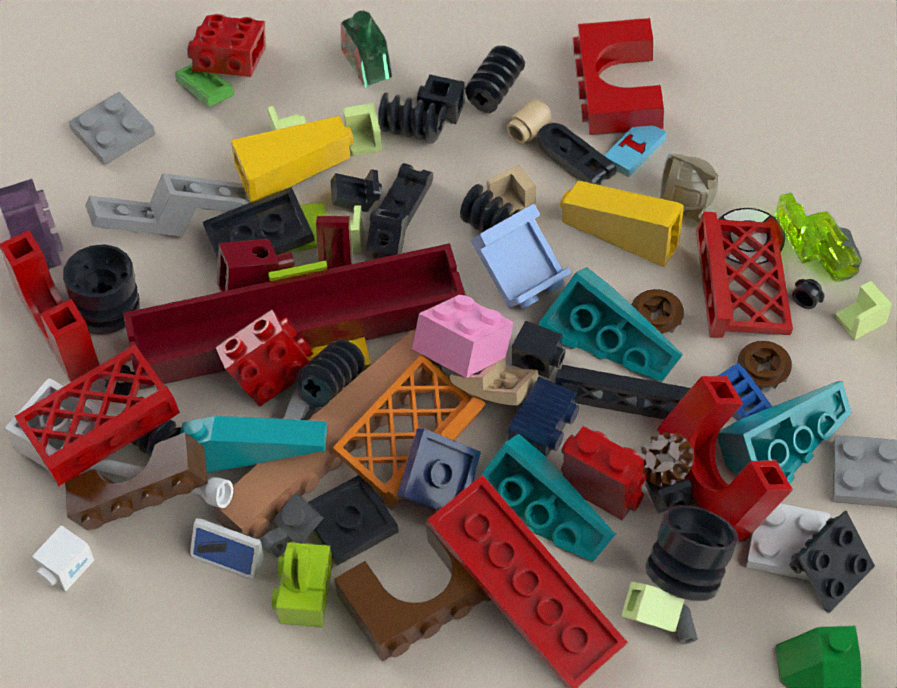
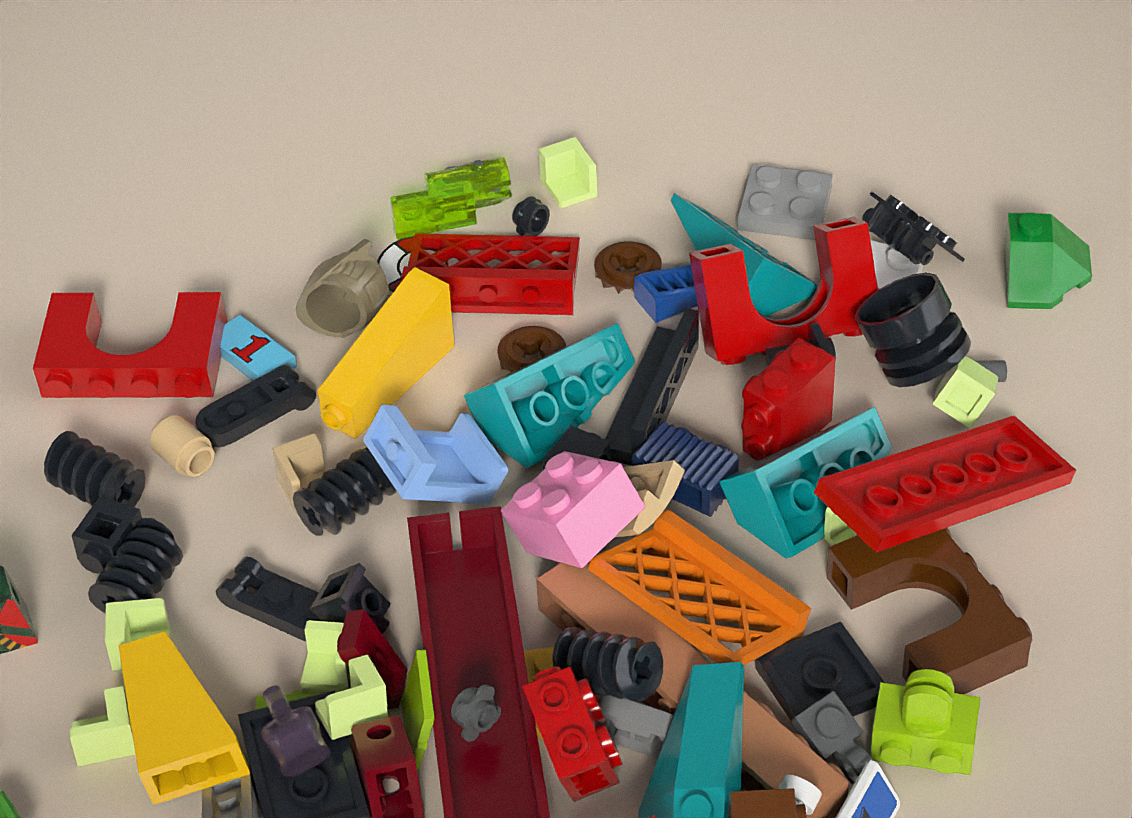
camera: 85 degrees left, 10 degrees down
(269, 213) = (292, 734): none -> clear purple piece
(286, 303) = (475, 711): none -> dark grey plate
(292, 240) = (357, 705): none -> yellowish green panel
(354, 191) = (256, 642): black bracket -> none
(437, 470) = (762, 552): dark blue plate -> none
(667, 473) = (753, 343): reddish brown gear -> none

